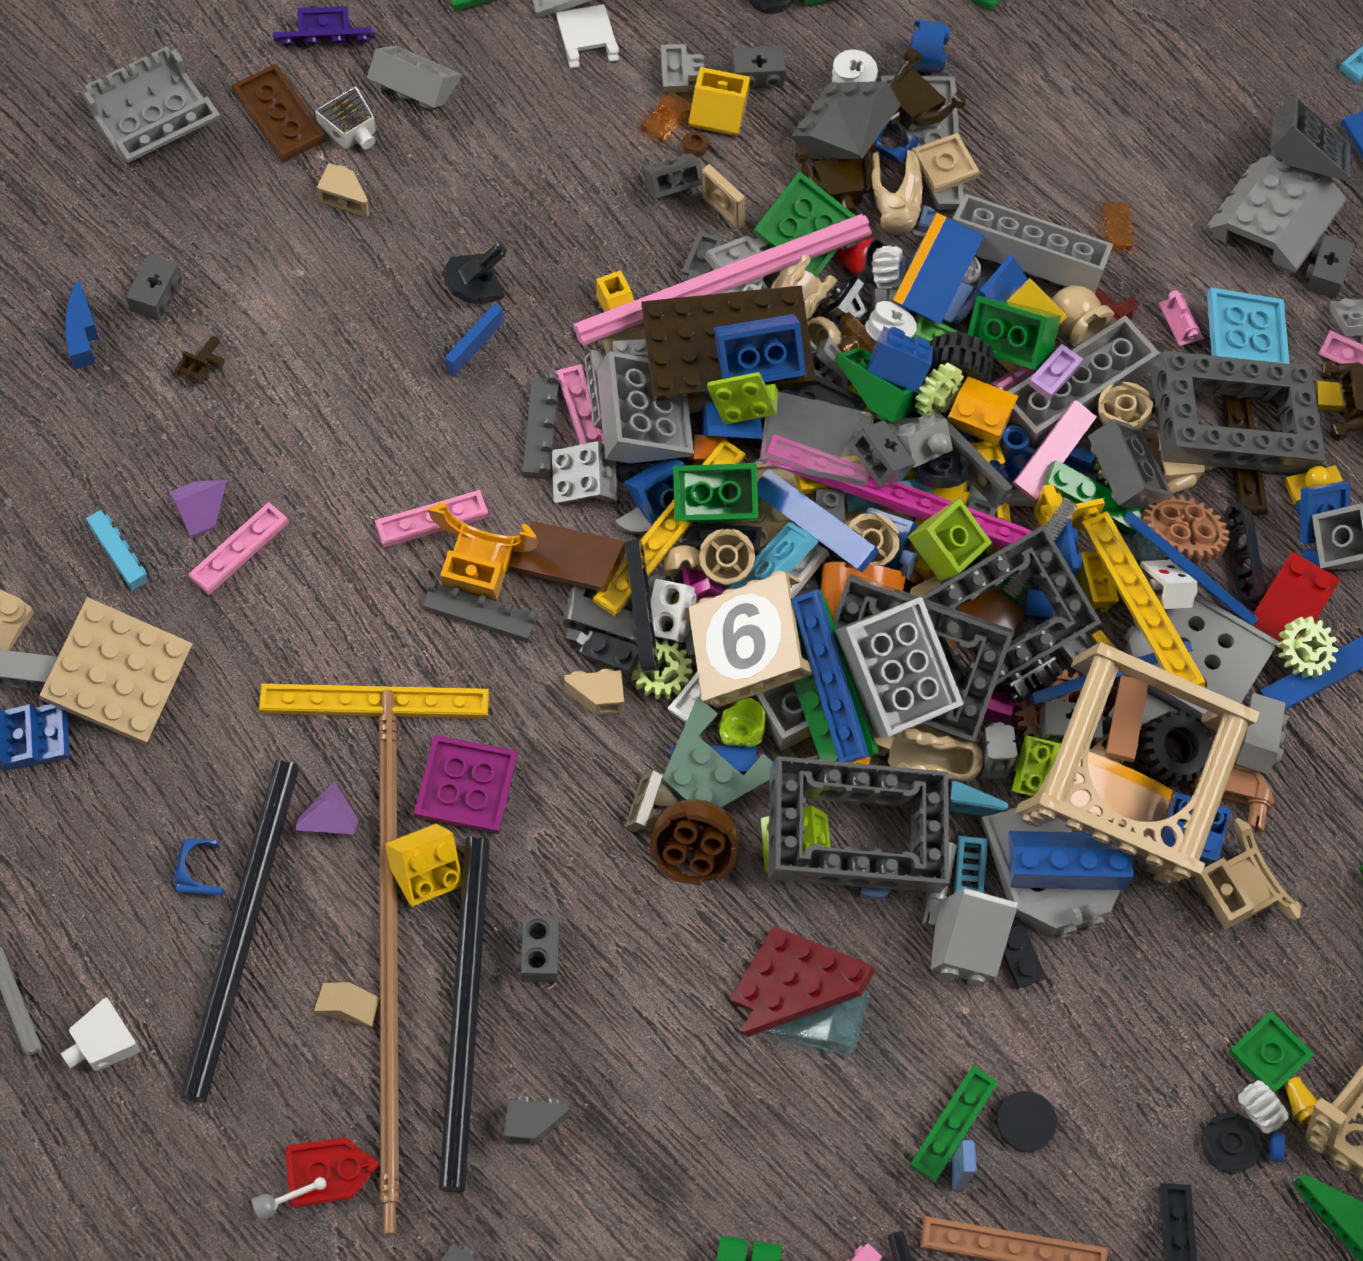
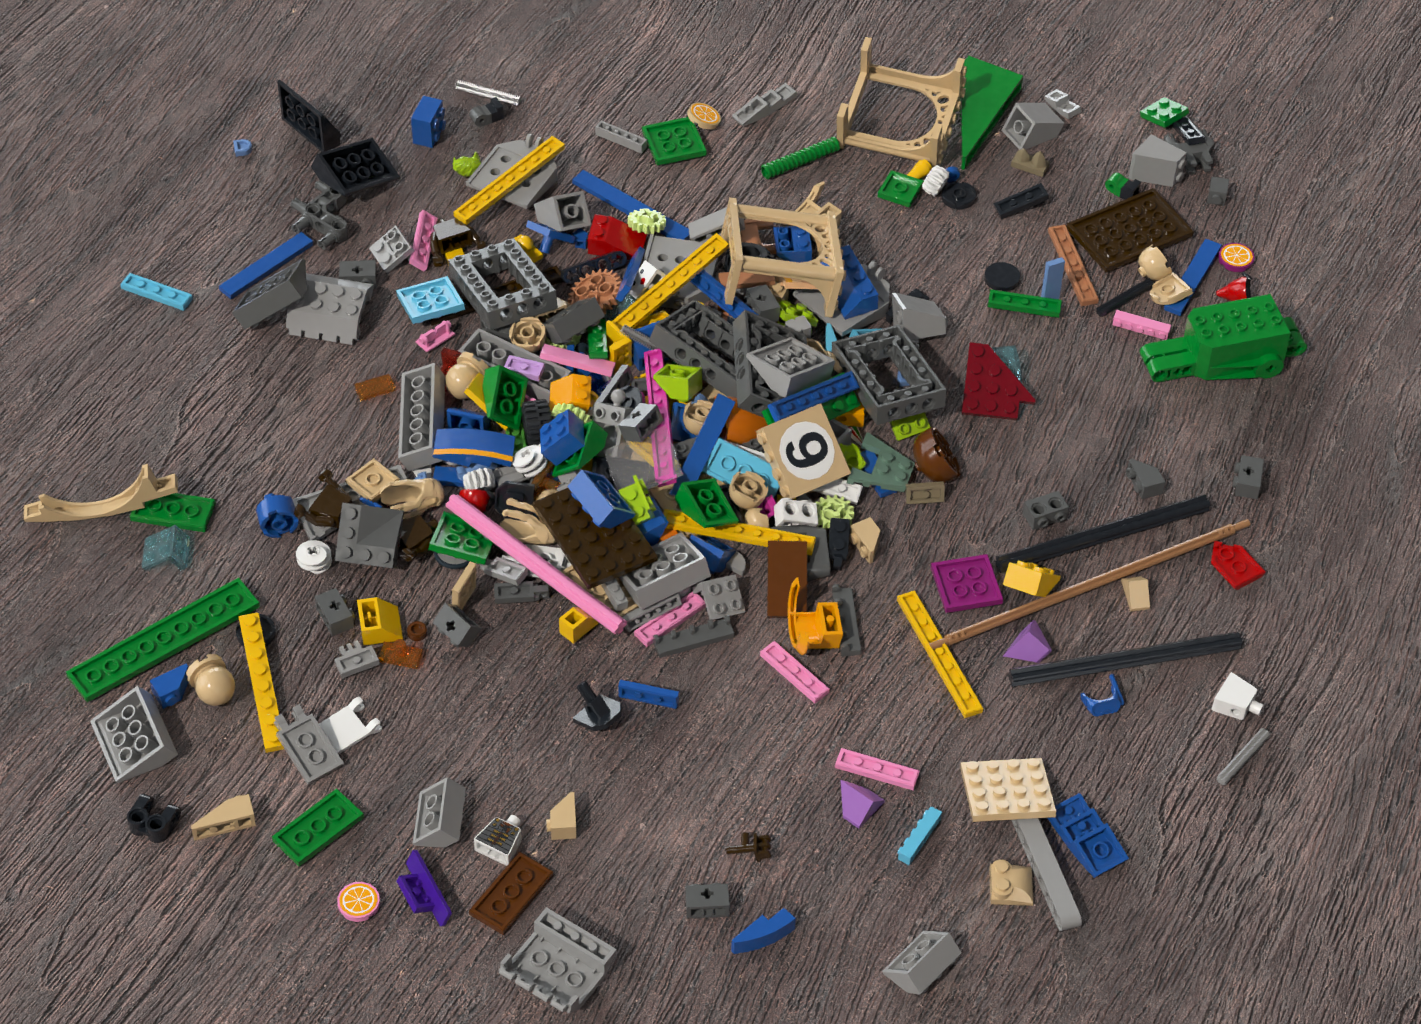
camera: 110 degrees left, 15 degrees down
(266, 1205) = (1273, 581): hinge -> none
(642, 606) = (806, 519): black beam -> none

